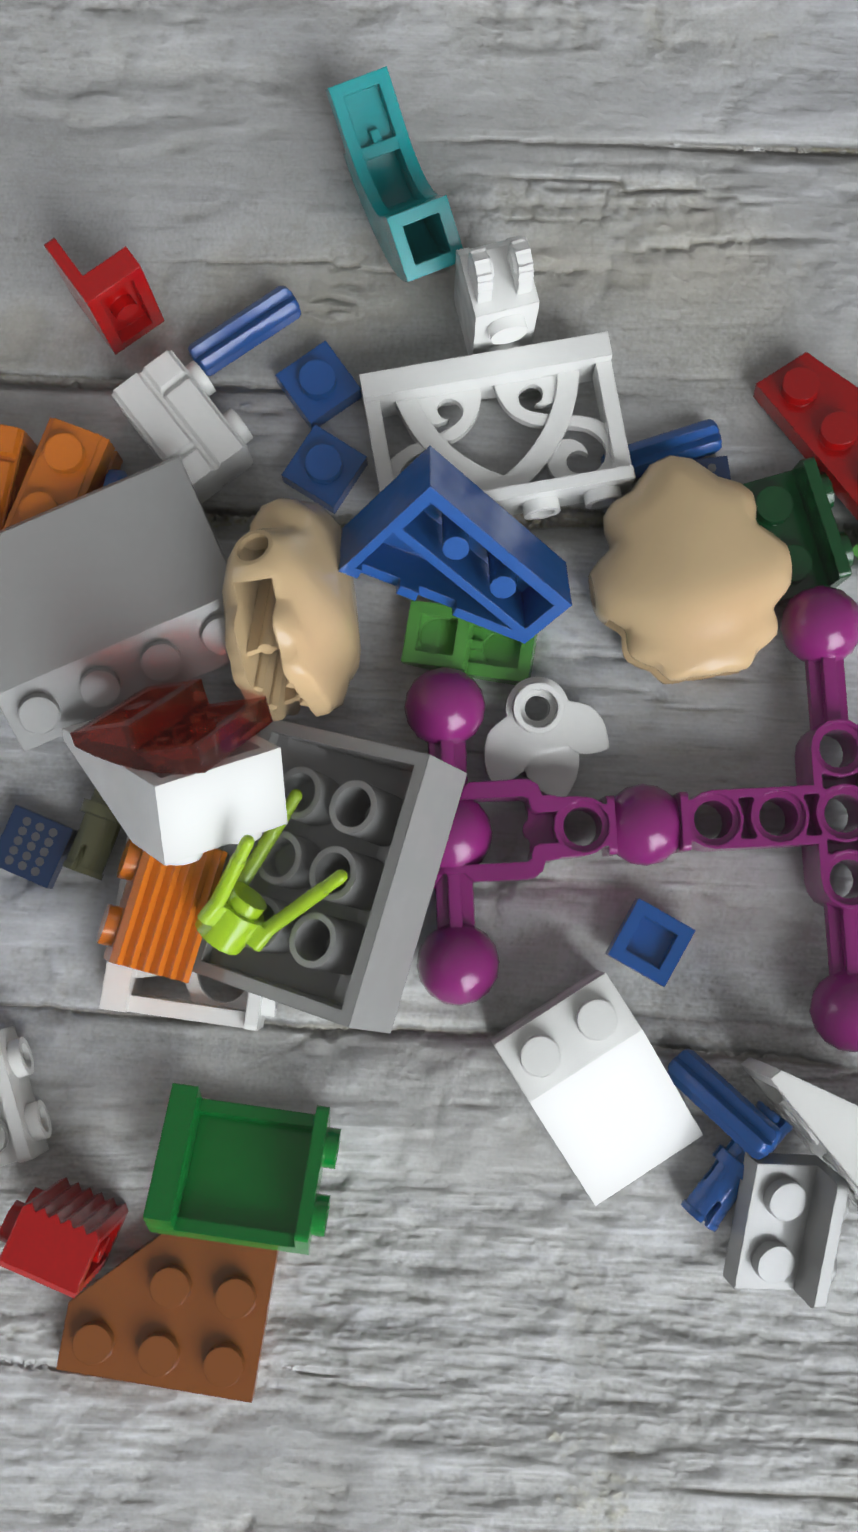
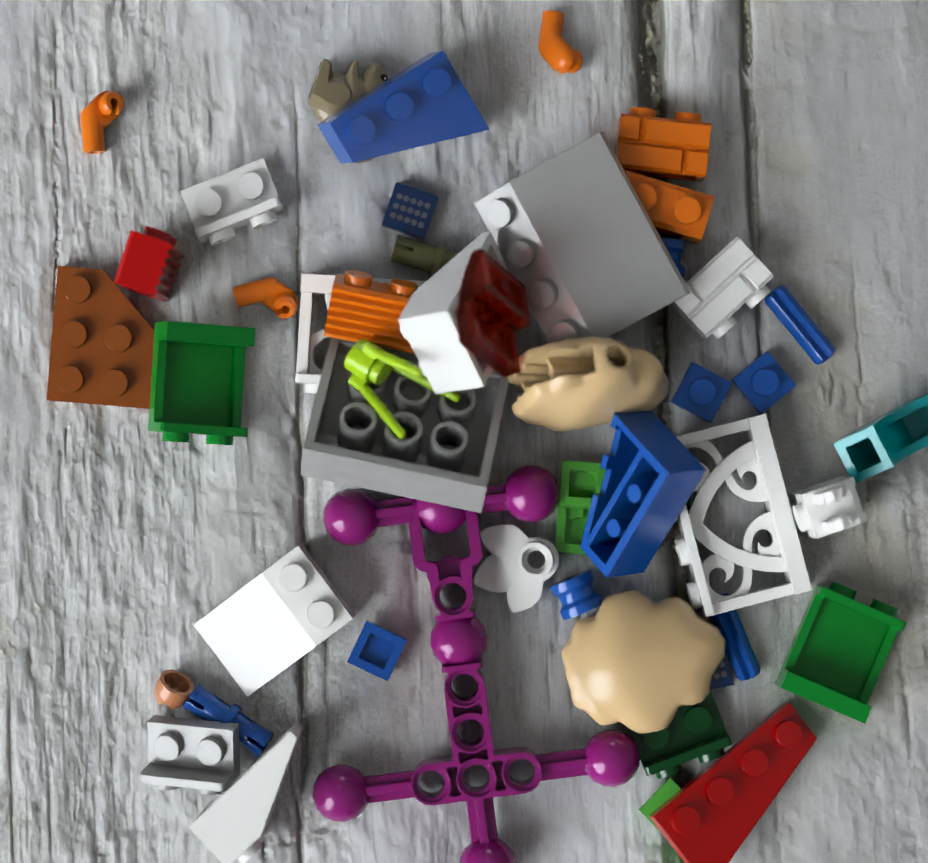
camera: 90 degrees right, 5 degrees up
(111, 296) = (804, 233): red panel -> none
(128, 1056) = (270, 293): none -> orange arm
(590, 656) = (576, 594): none -> blue wheel
(673, 1238) = (176, 681): none -> nougat hinge
(689, 312) = (840, 650): none -> green panel
(724, 1104) = (270, 706): blue axle -> none

